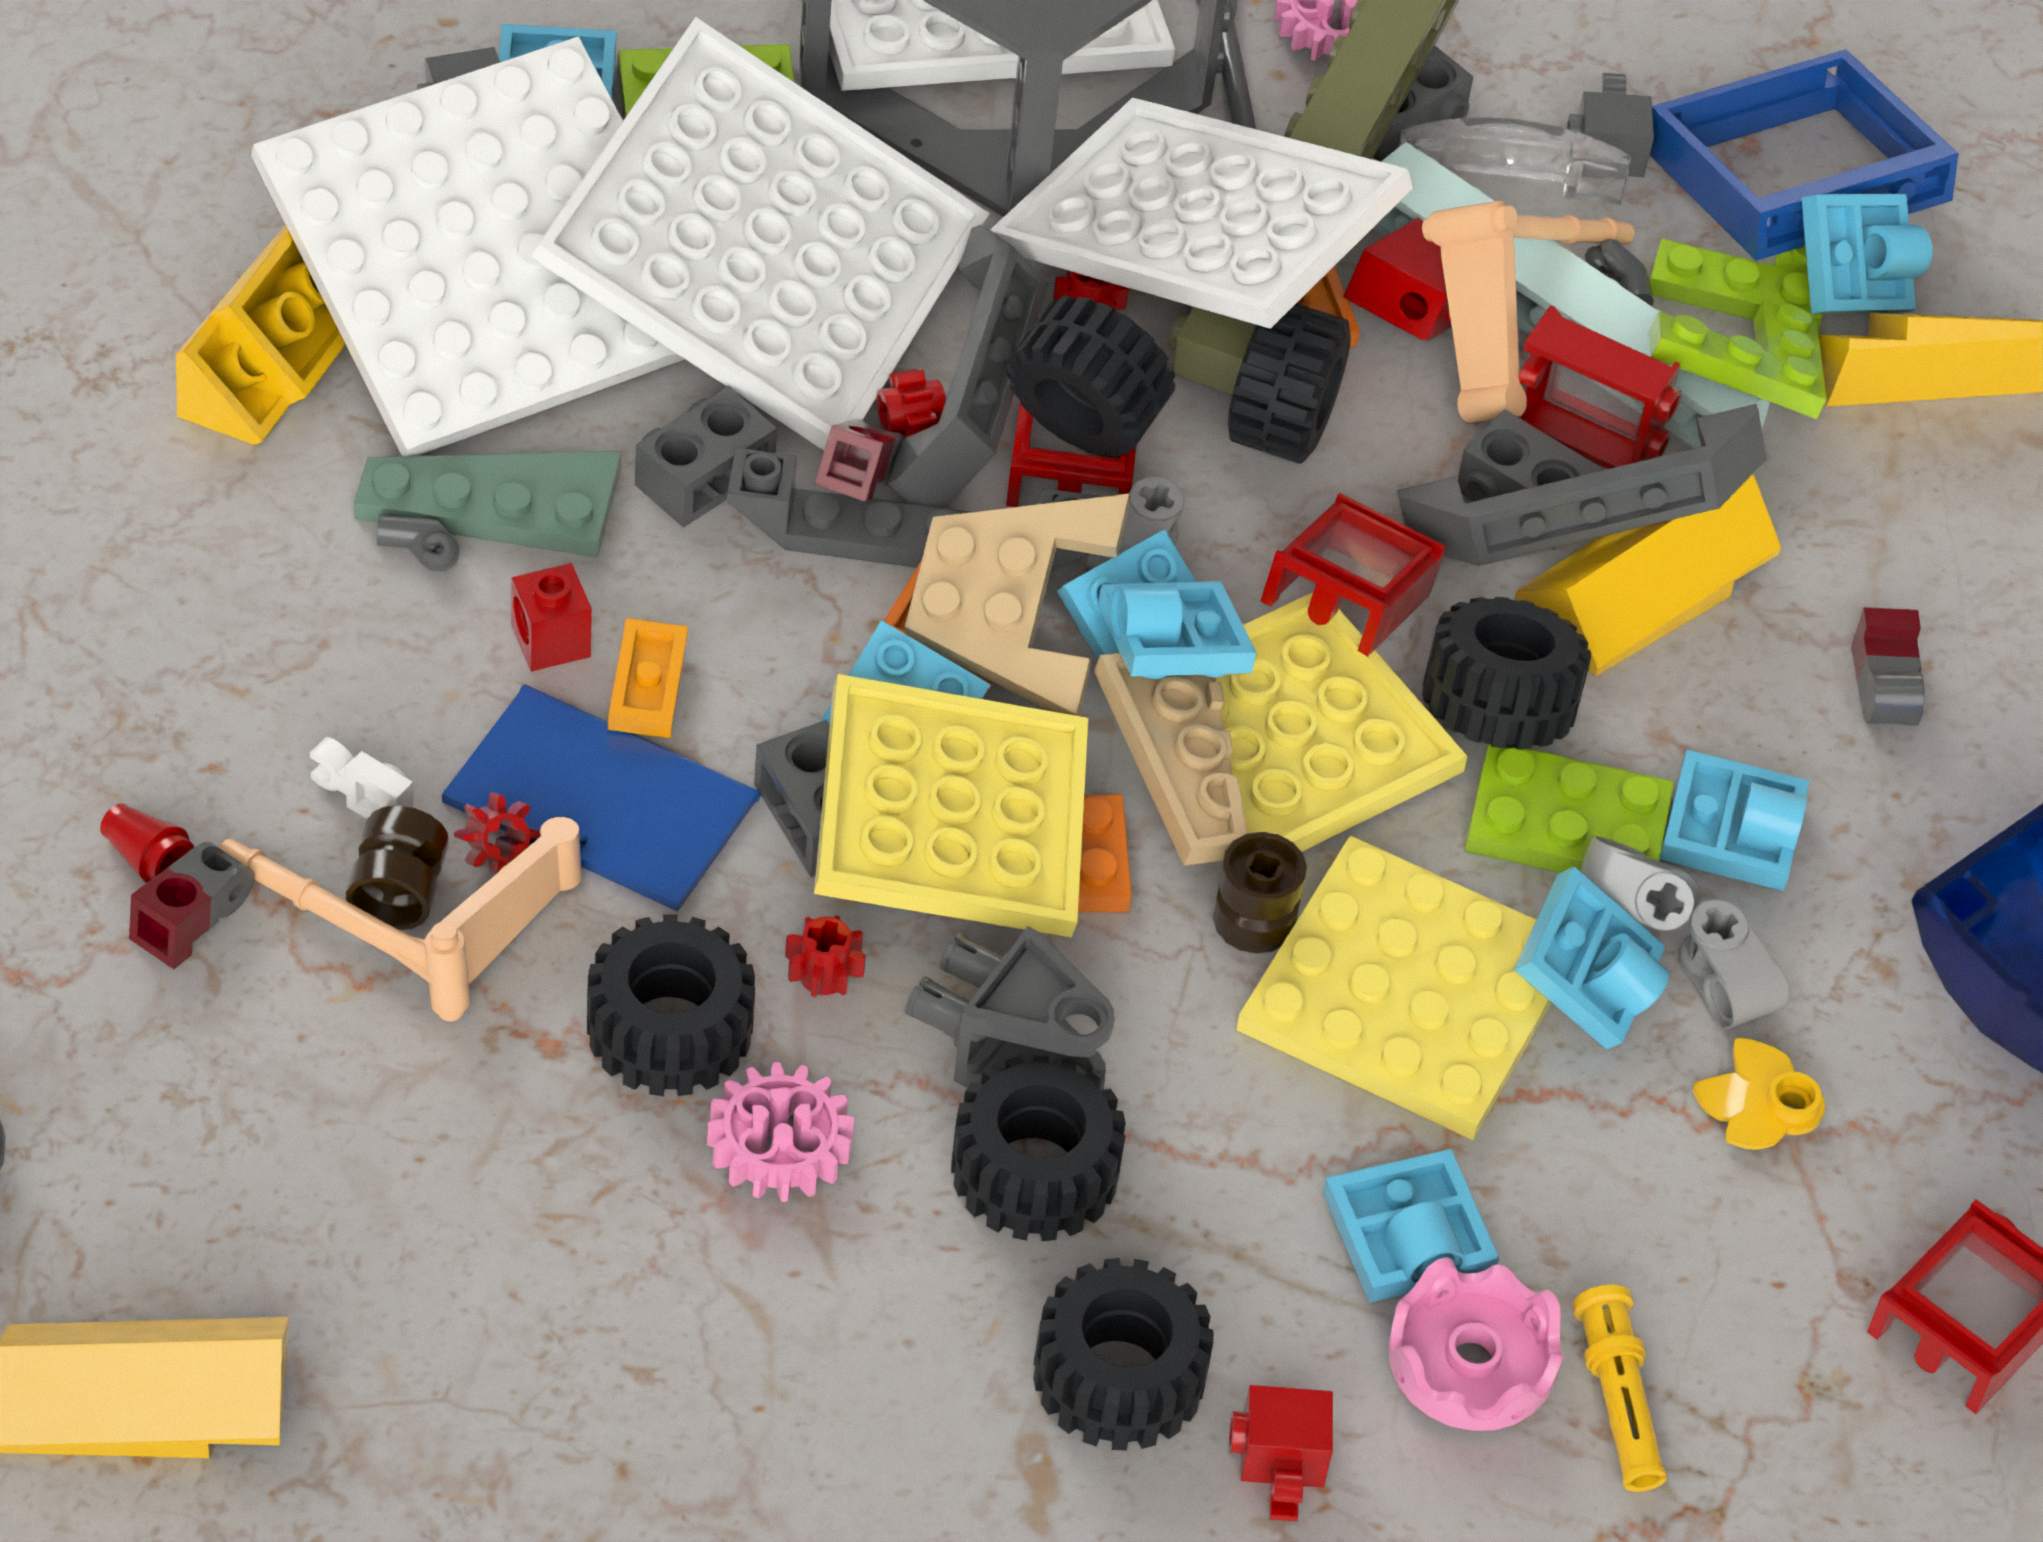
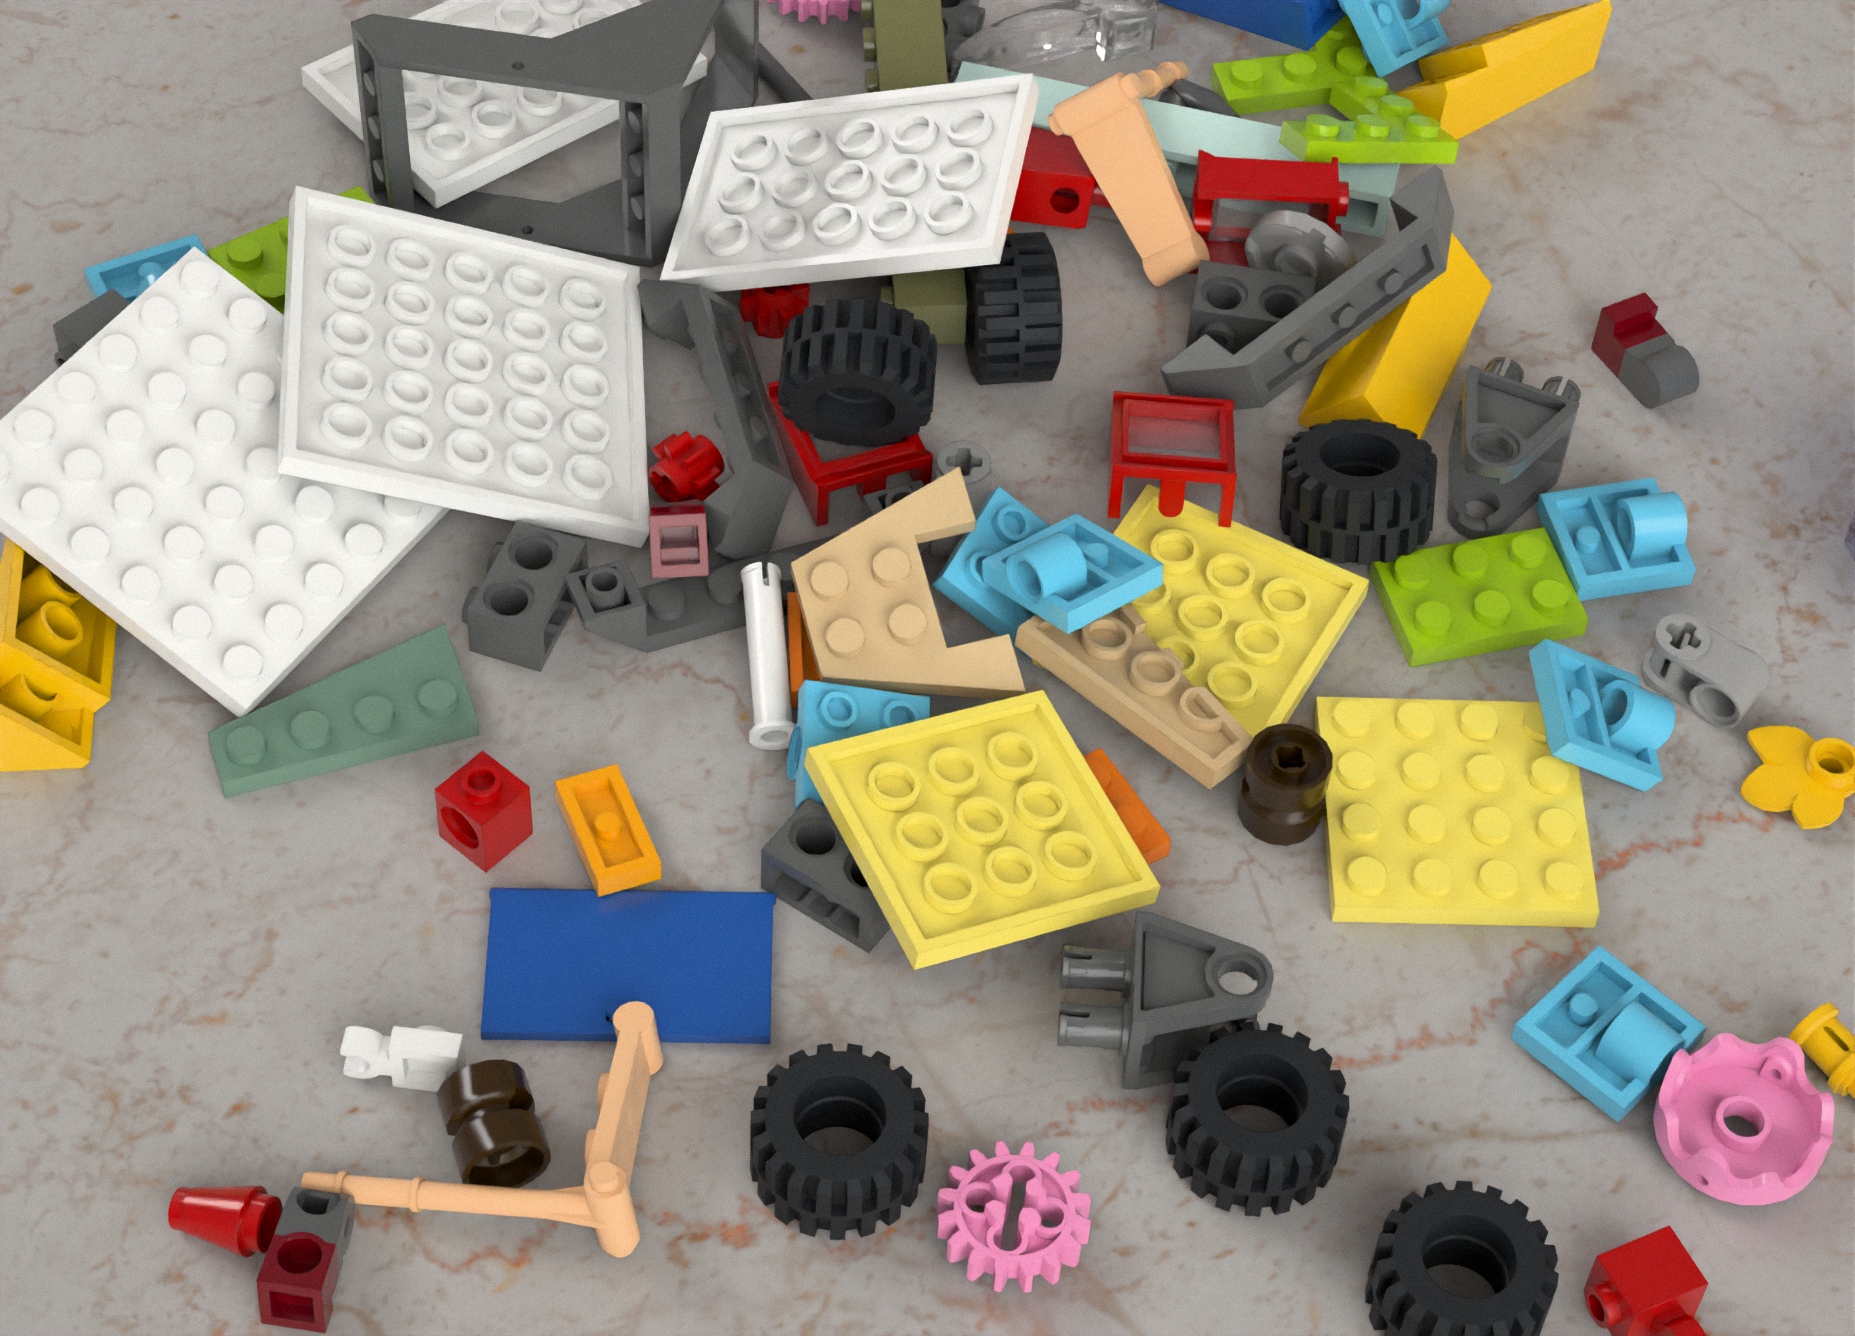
camera: 25 degrees left, 0 degrees up
(423, 537) = (308, 787): dark grey arm -> none
(488, 820) = (567, 1047): red gear -> none
(825, 955) = (943, 1023): red gear -> none
(876, 591) = (767, 658): none -> white pin
(1597, 430) = (1299, 246): none -> light grey tile
(1633, 877) = (1587, 629): light grey piece -> none
(1682, 690) = (1506, 445): none -> dark grey piece

